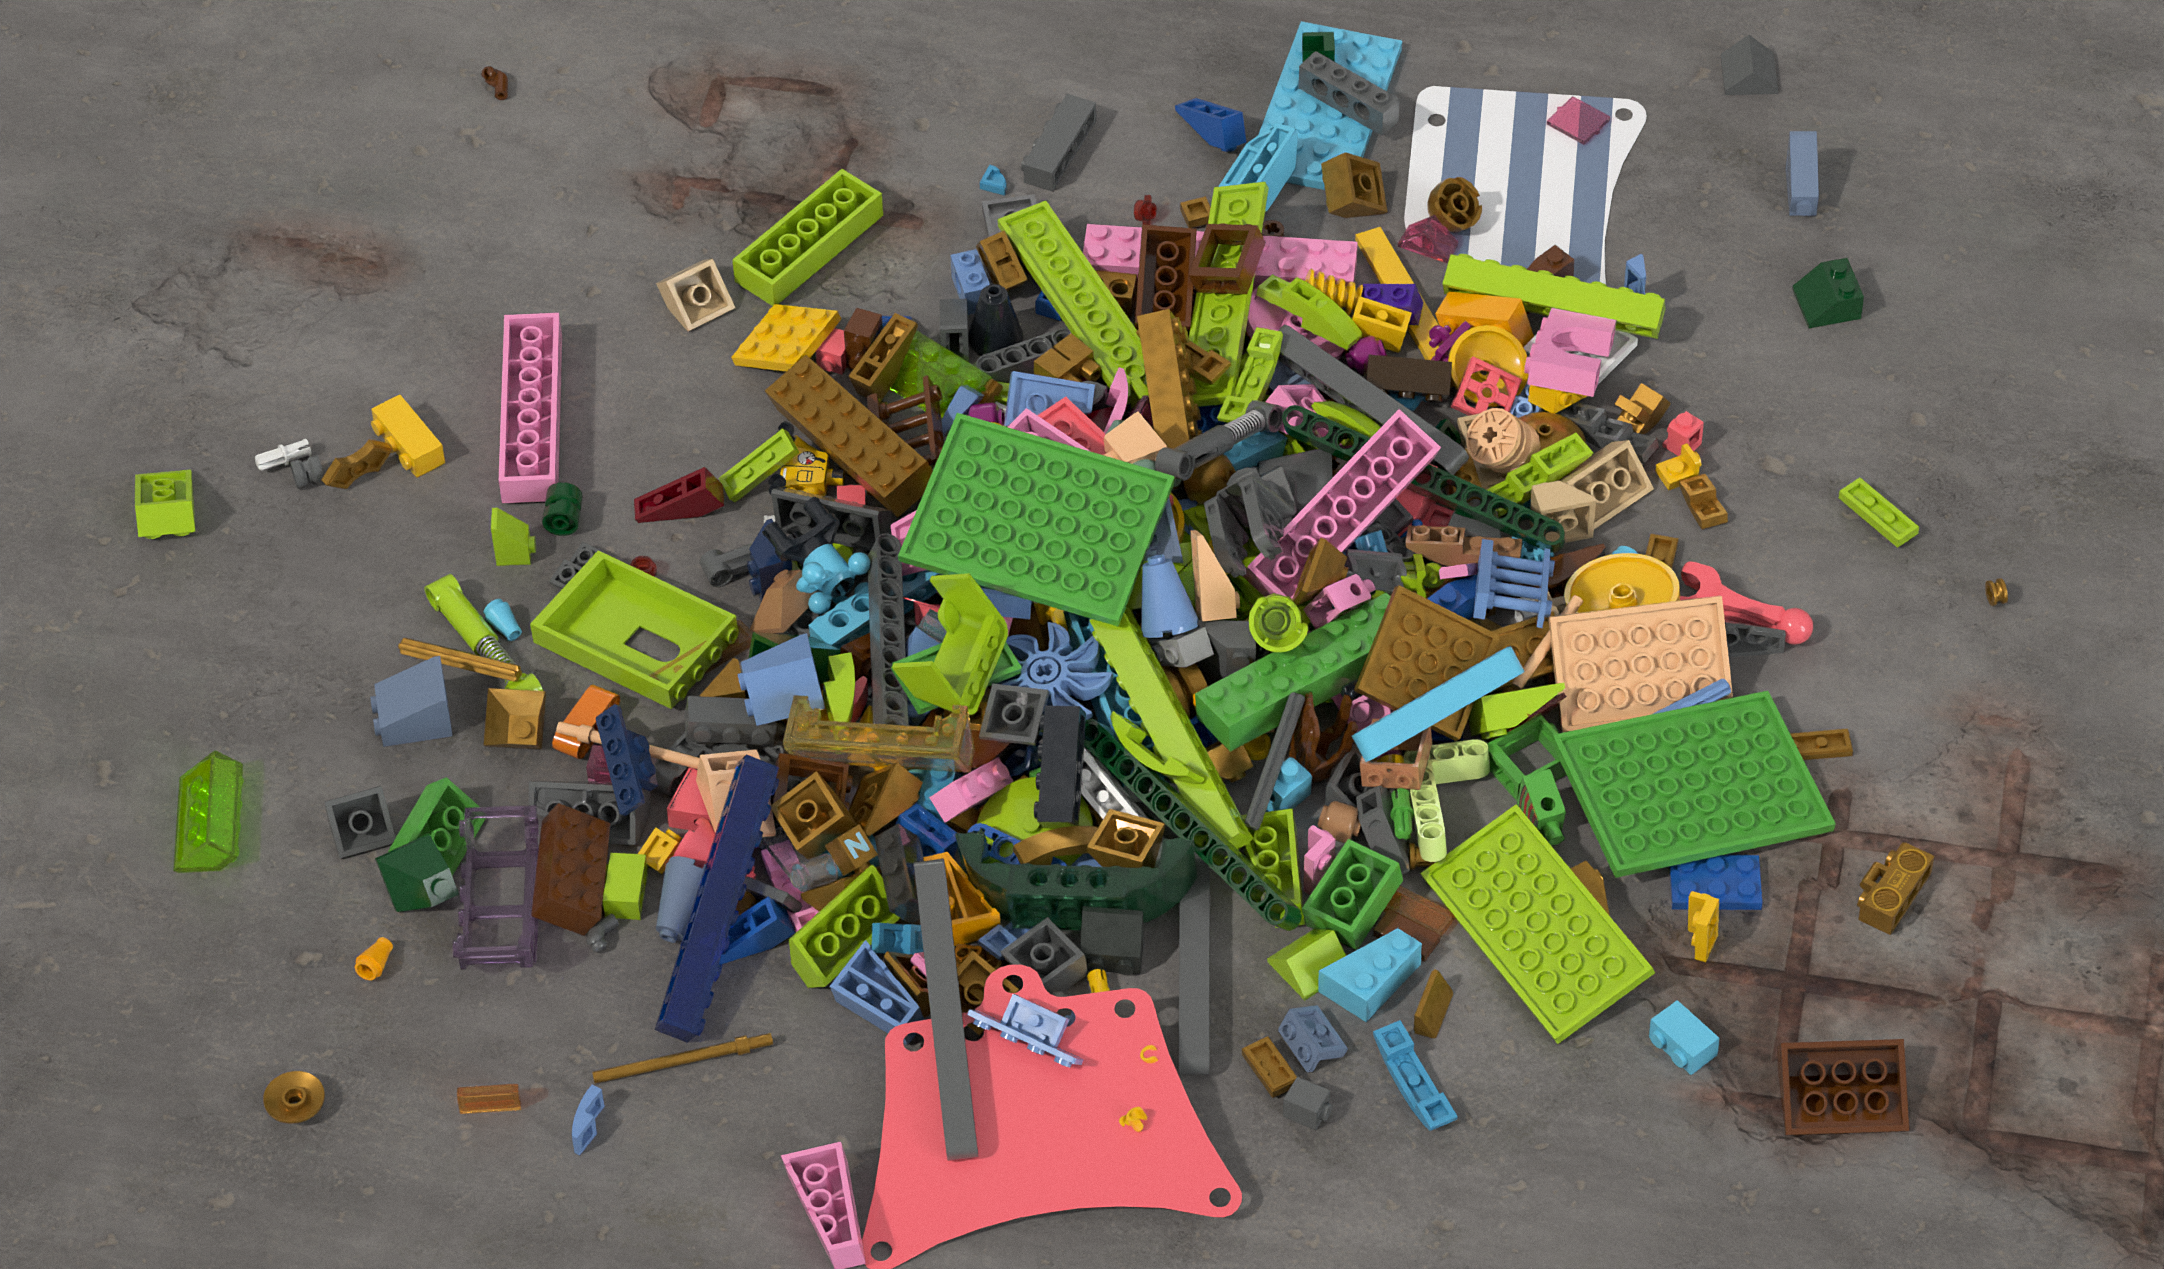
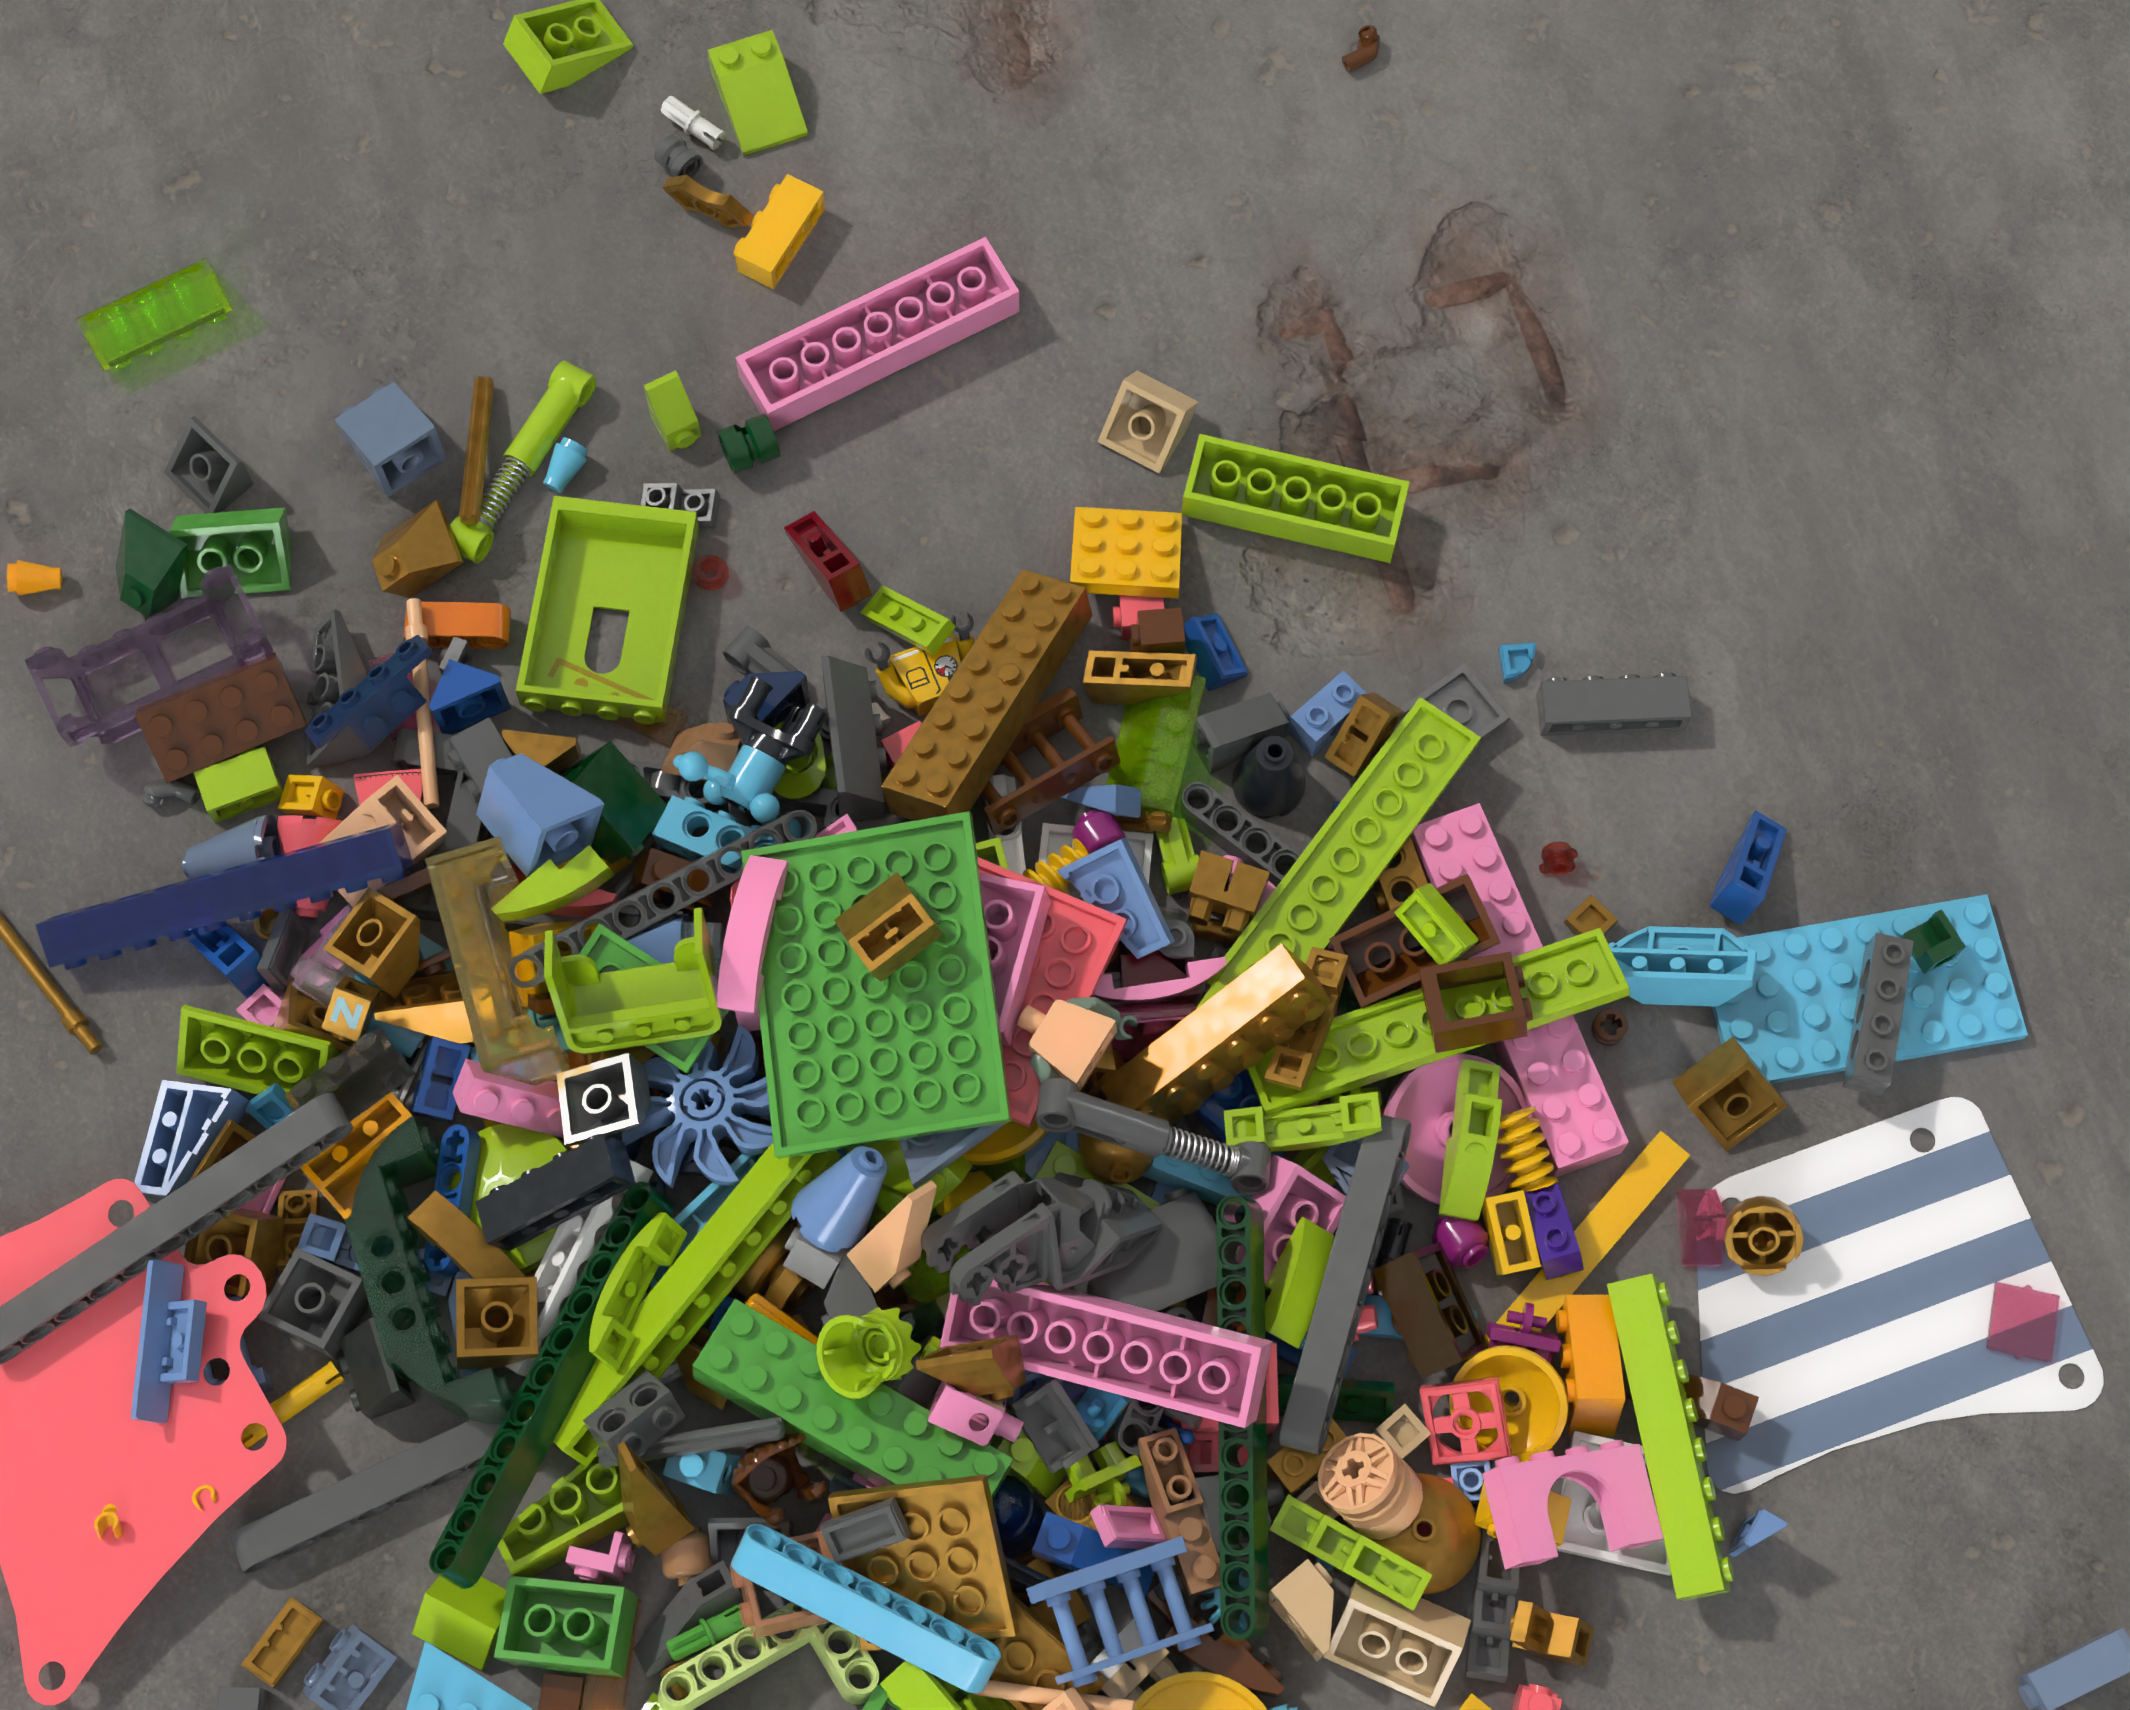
camera: 60 degrees right, 20 degrees up
(286, 410) = (757, 92): none -> lime slope
(648, 717) = (466, 697): none -> blue slope
(956, 559) = (748, 934): none -> bright pink slope
(1008, 479) = (888, 927): none -> pearl gold slope
(1165, 257) = (1436, 925): none -> lime slope
(1241, 784) = (635, 1415): none -> dark grey brick
(1298, 800) = (652, 1509): none -> pearl gold slope
(1390, 676) = (865, 1530): none -> dark grey tile

